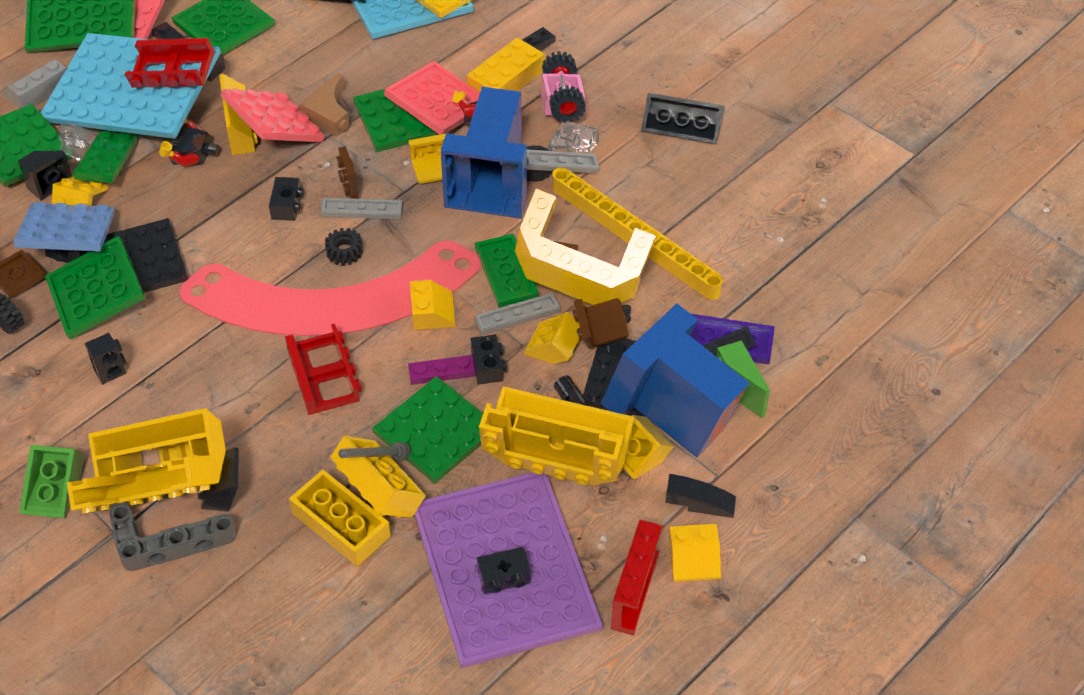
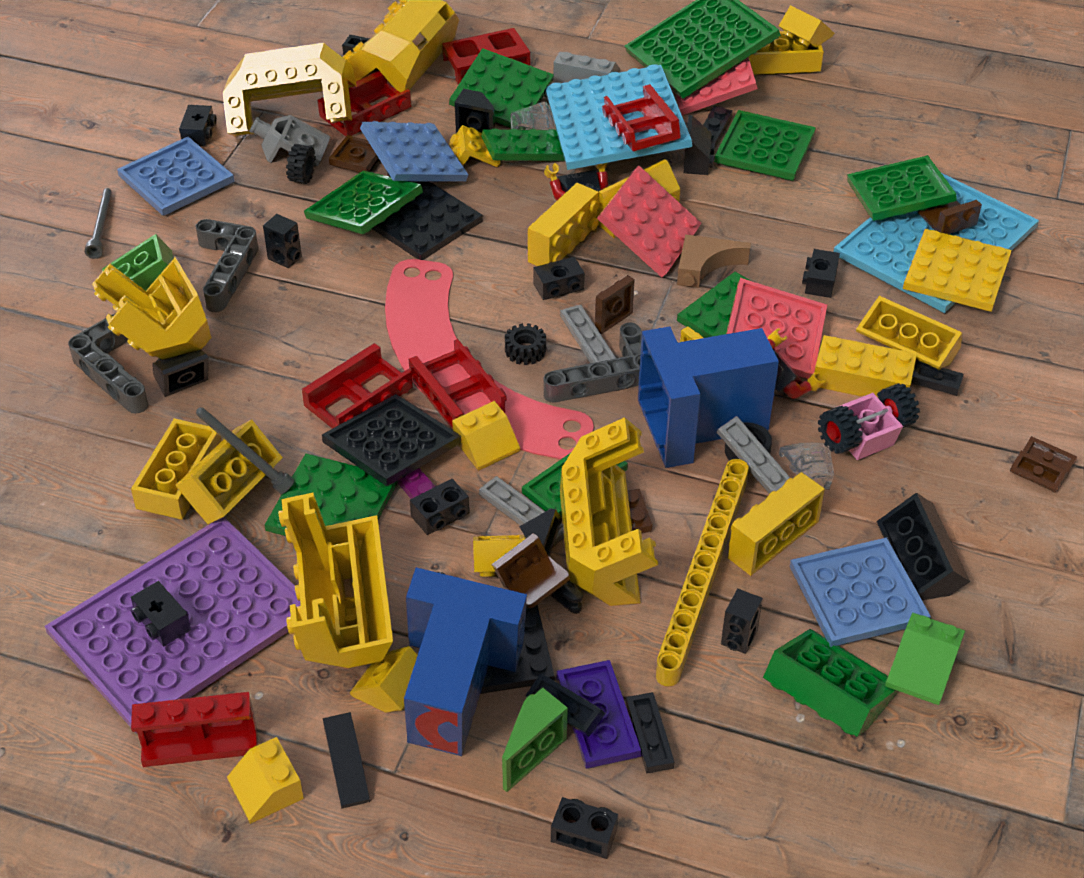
camera: 65 degrees right, 5 degrees down
(77, 392) = (239, 249): none -> dark grey beam
(235, 170) = (563, 225): none -> yellow brick
(365, 316) = (445, 398): none -> red window
(392, 51) = (821, 273): none -> black brick
(399, 363) = (391, 439): none -> black plate
(417, 192) = (598, 376): none -> dark grey beam
(490, 32) = (911, 332): none -> yellow slope
(555, 303) = (545, 527): none -> black slope
(625, 174) = (775, 523): none -> yellow brick
(642, 30) = (1043, 464): none -> reddish brown slope
(698, 164) = (858, 591): none -> medium blue plate
(700, 228) = (741, 621): none -> black brick
(760, 315) = (650, 732): none -> black plate
(766, 208) = (830, 681): none -> green slope
(774, 154) = (925, 658): none -> bright green slope
(820, 380) = (581, 834): none -> black brick

